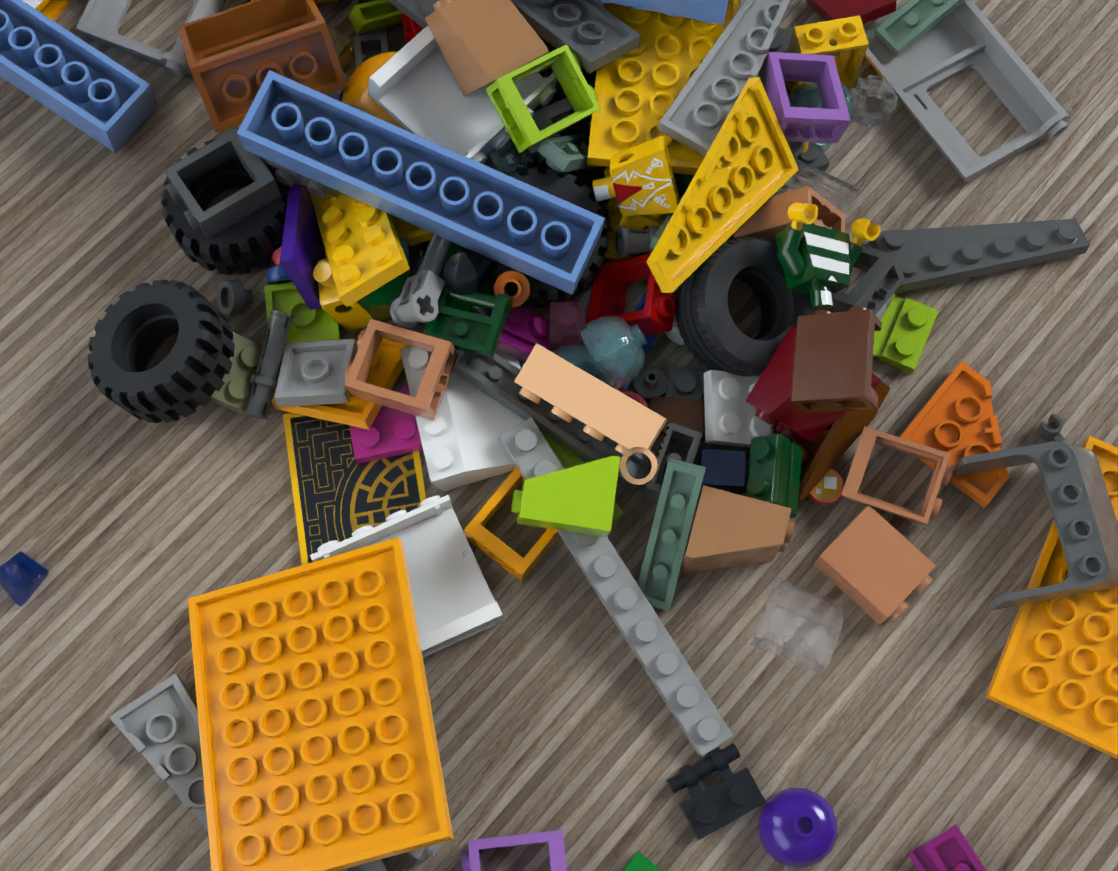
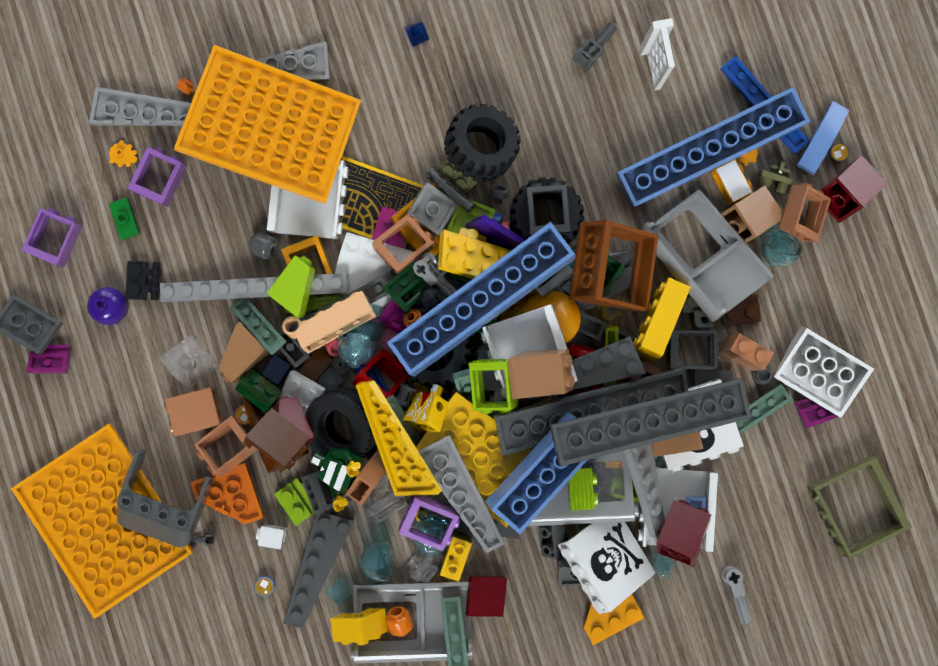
camera: 120 degrees right, 15 degrees up
(532, 614) = (263, 245): none -> dark grey head
(909, 166) = (377, 561): none -> clear light blue cylinder
(968, 92) = (399, 621): none -> orange head
(978, 334) = (271, 536): none -> white brick
(986, 199) = (339, 591): none -> clear light blue plate
(1019, 132) = (359, 627): none -> yellow brick
(1056, 307) = (264, 586): none -> tile

